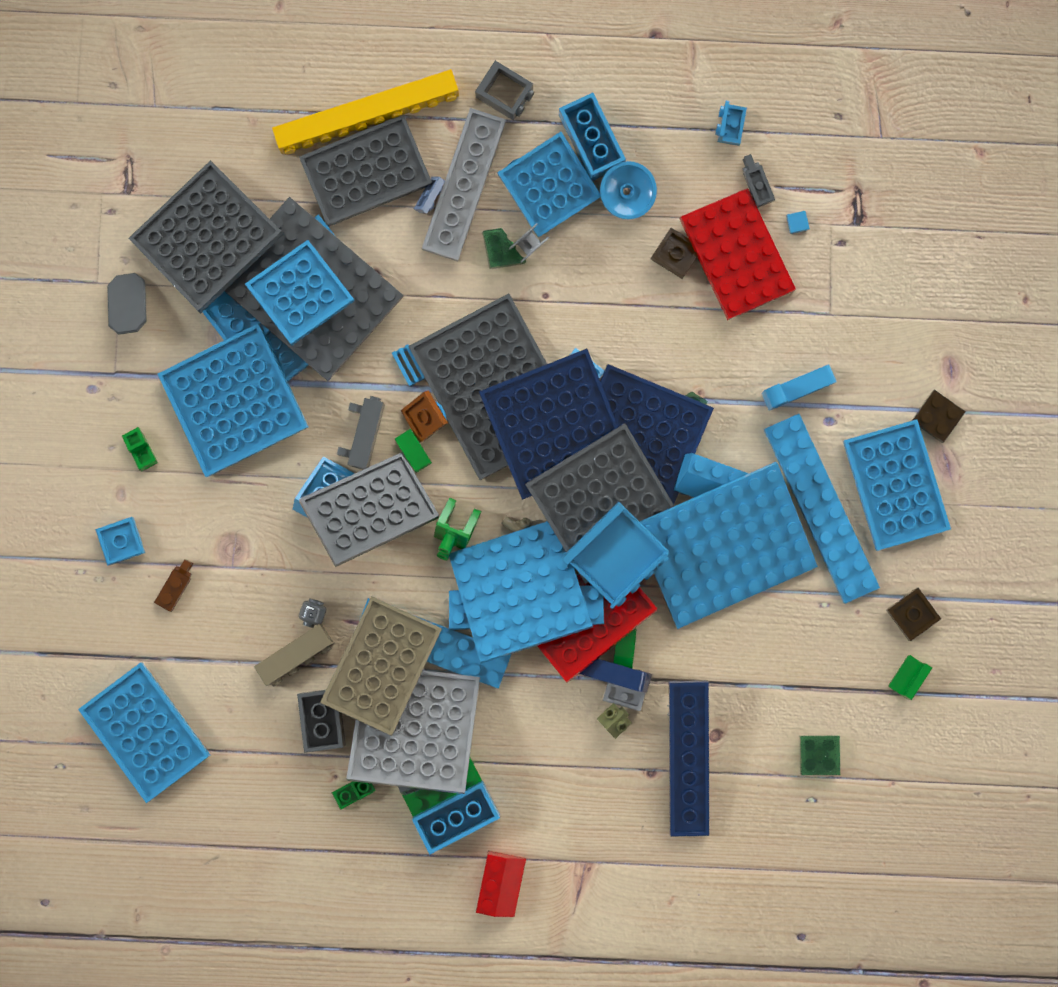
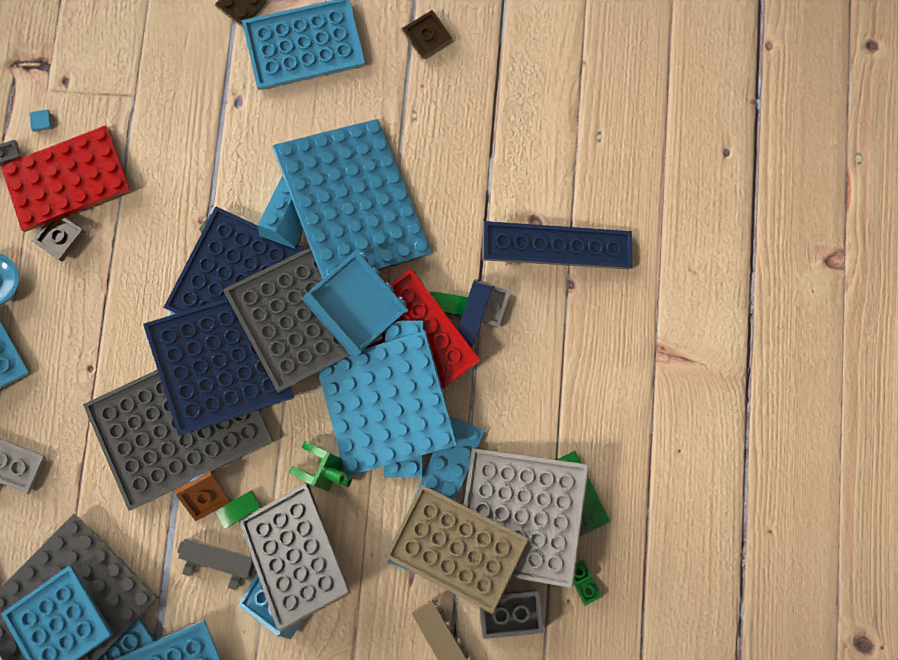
camera: 90 degrees left, 5 degrees down
(312, 612) = (399, 620): dark grey head -> none
(401, 351) = (134, 517): dark azure tile -> none
(456, 817) = (612, 477): dark azure brick -> none
(498, 251) = (37, 412): clear green wing -> none
(500, 885) = (678, 435): red slope -> none
(516, 525) = (321, 406): dark tan arm -> none
(528, 242) = (31, 381): light grey piece -> none
(615, 720) = (518, 315): olive brick -> none
(798, 387) = (203, 128): dark azure beam -> none
(819, 754) = (557, 125): clear green plate -> none
(821, 508) = (322, 112): dark azure plate -> none
(909, 677) = (486, 40): green panel -> none

